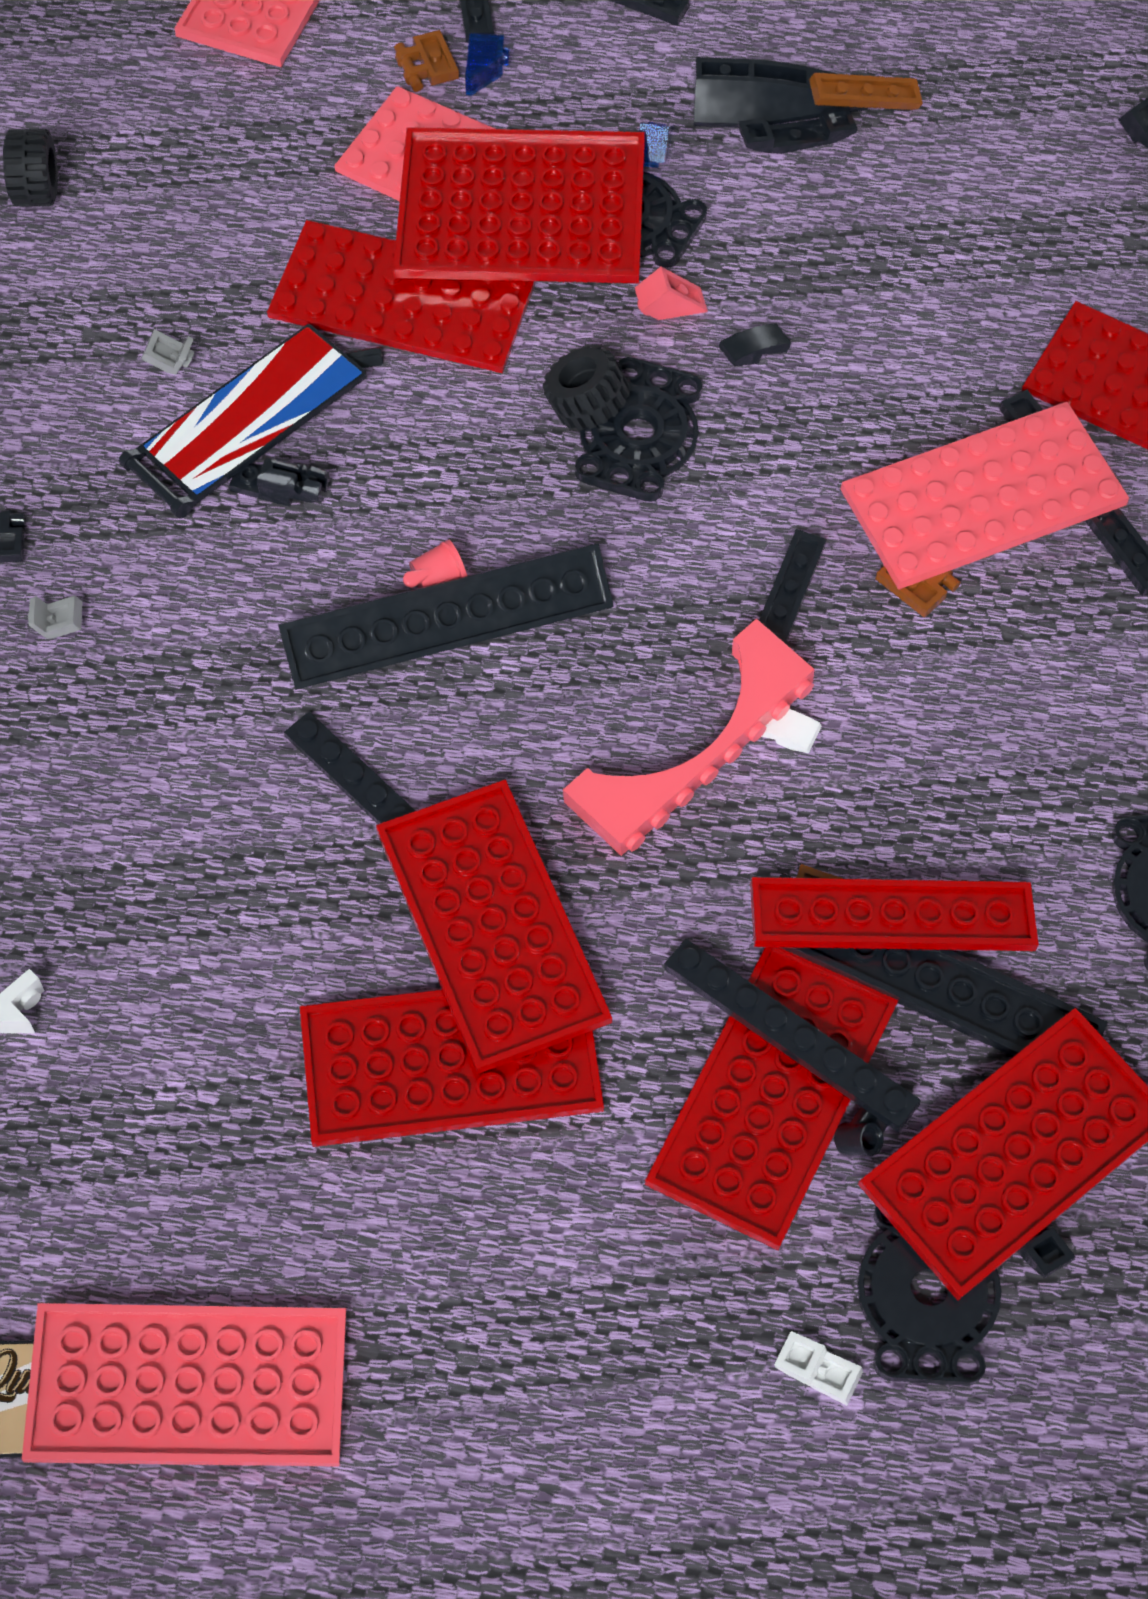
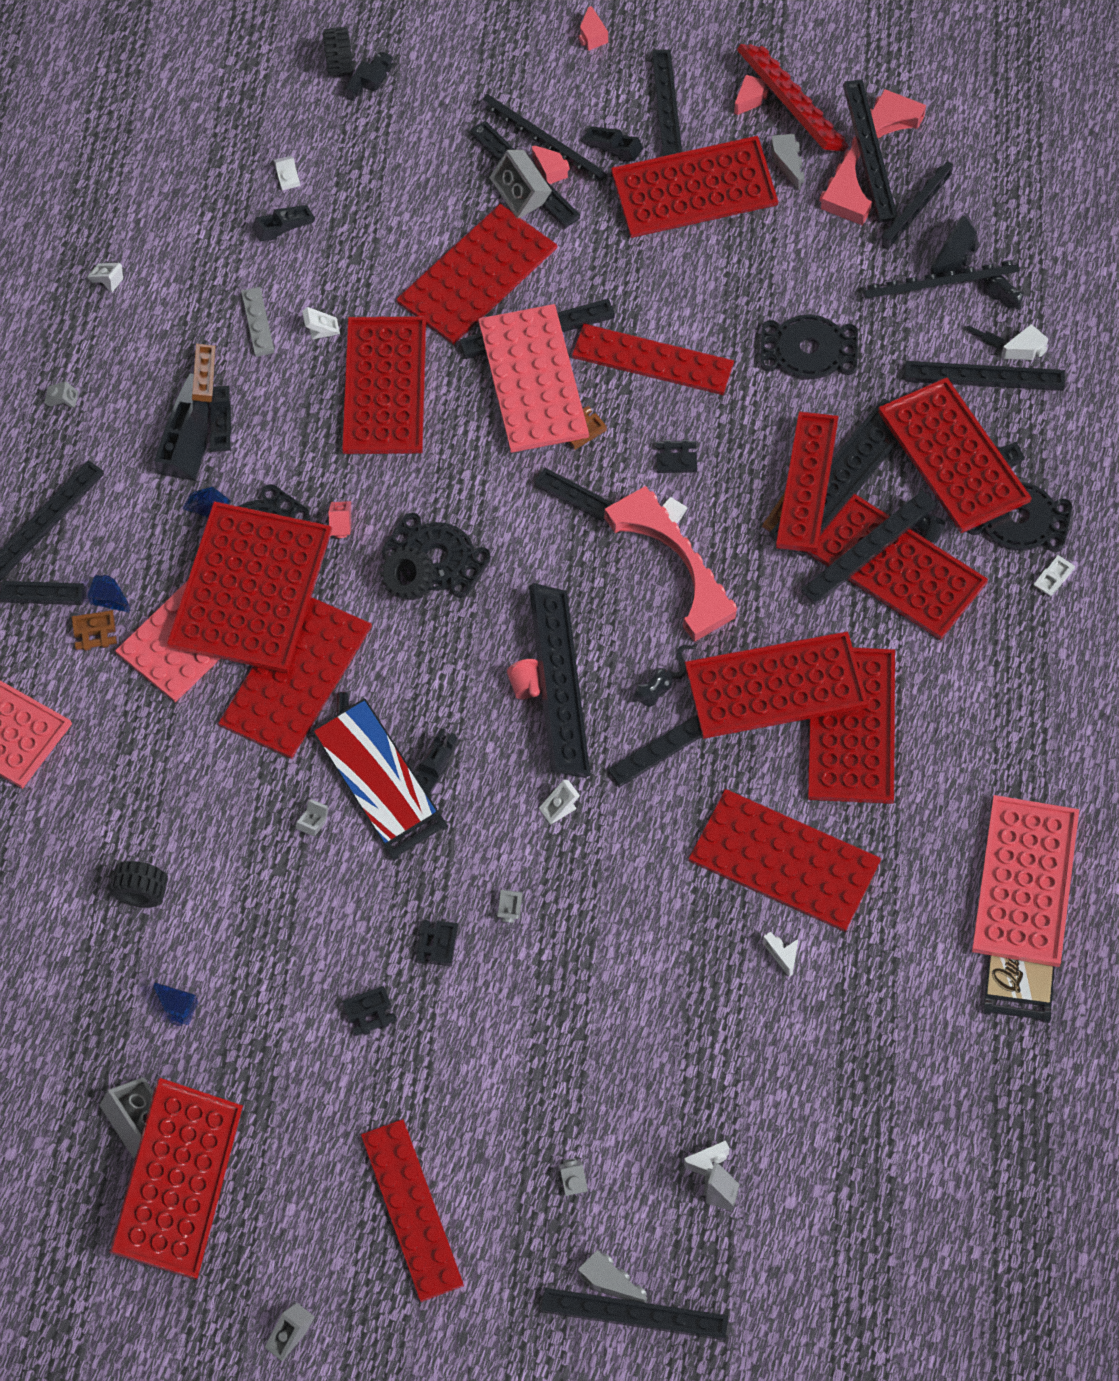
camera: 75 degrees left, 0 degrees up
(184, 995) = (785, 860): none -> red plate
(238, 655) = (560, 802): none -> white slope
(478, 759) = (660, 681): none -> black animal
(751, 344) = (388, 478): black slope -> none
(892, 725) = (676, 462): none -> black plate
(918, 313) = (385, 385): none -> red plate
(981, 146) = (257, 321): none -> light grey plate
(998, 212) = (320, 323): none -> white slope
(1079, 665) = (653, 359): none -> red plate

